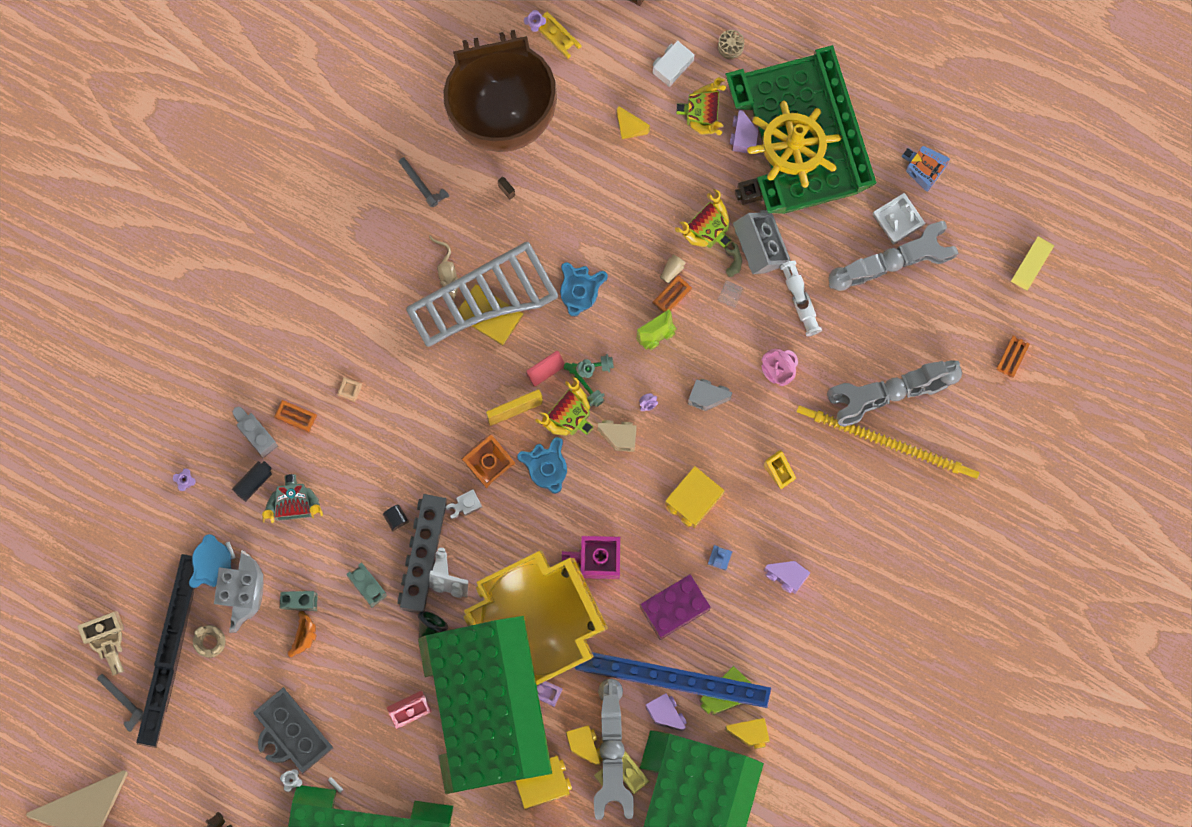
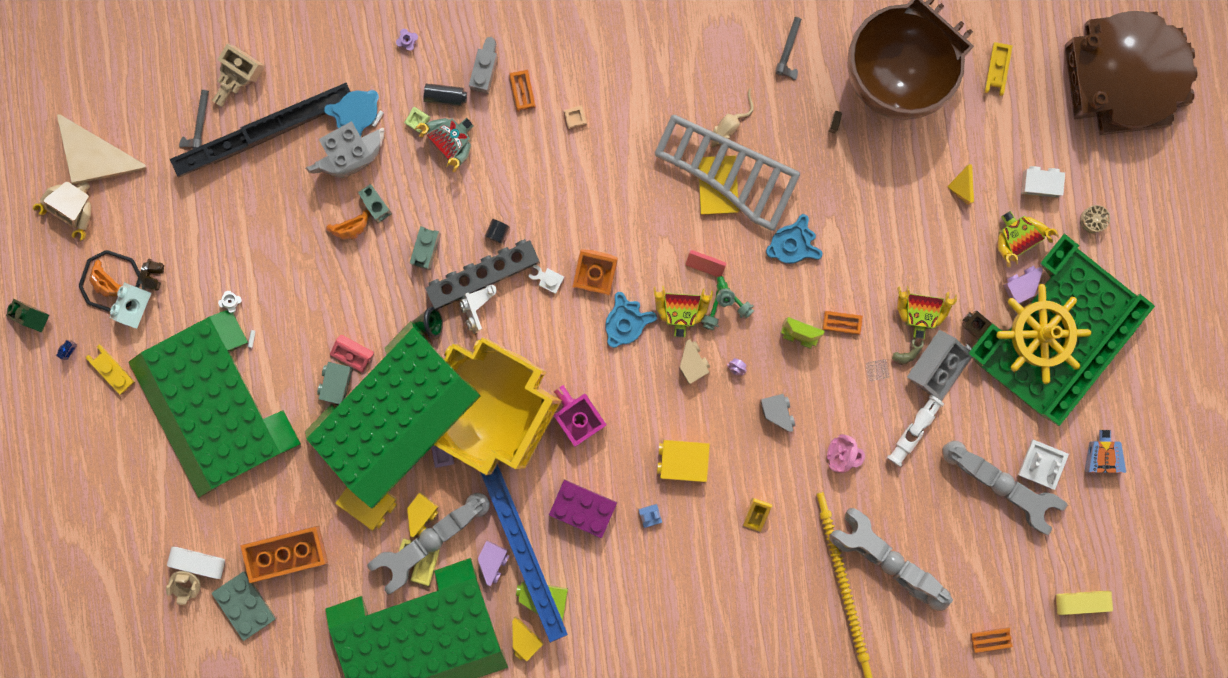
camera: 55 degrees right, 10 degrees up
(204, 631) = (282, 151): tan piece -> none
(254, 517) = (415, 117): none -> yellowish green tile
(290, 732) = (266, 273): dark grey plate -> none
(424, 739) = (335, 382): none -> sand green brick
(514, 407) = (653, 262): yellow tile -> none
(534, 15) = (997, 46): lavender plate -> none
(673, 268) = (865, 307): tan cone -> none
(789, 574) = (676, 583): lavender slope -> none

